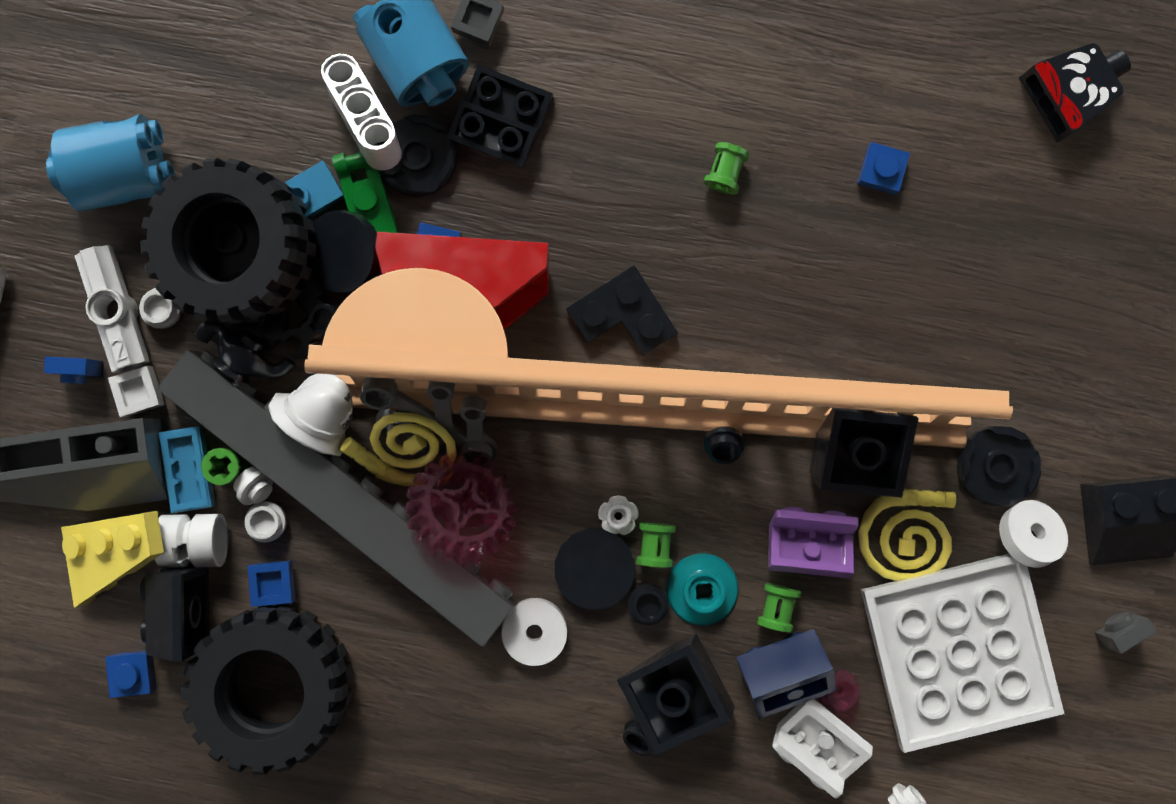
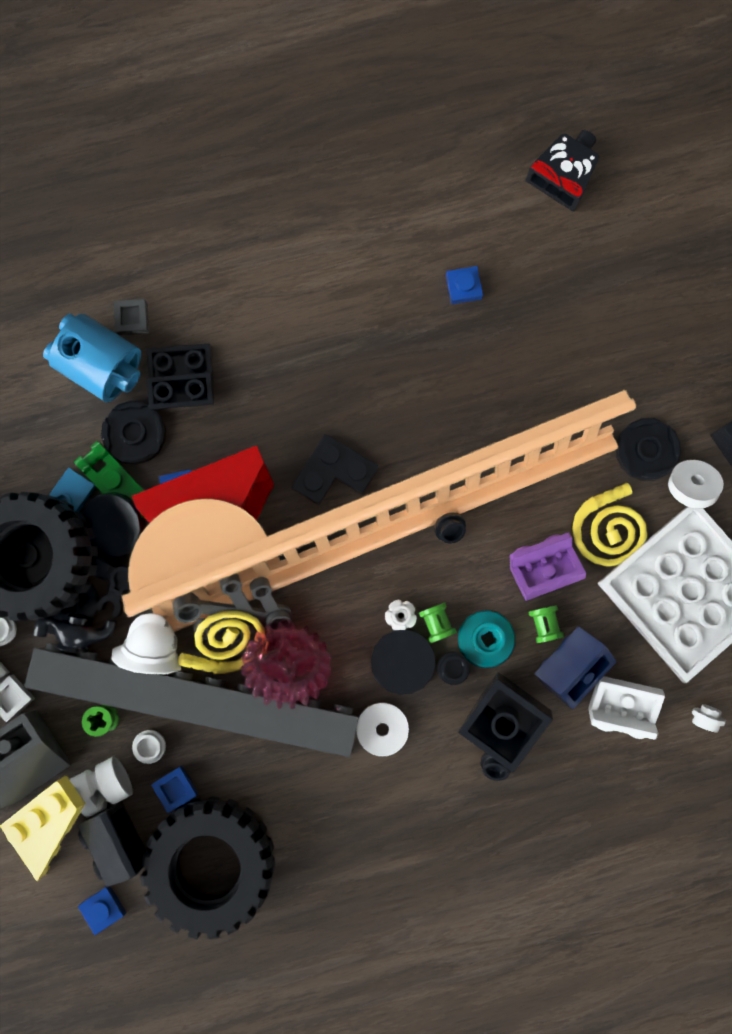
camera: 30 degrees left, 5 degrees down
(182, 461) = (66, 730): dark azure plate -> none
(252, 486) = (127, 724): white plate -> none
(358, 96) = (67, 410): white beam -> none
(726, 168) = (356, 336): bright green bush -> none
(850, 692) = (627, 664): clear pink plate -> none
(863, 452) = (549, 483): black slope -> none

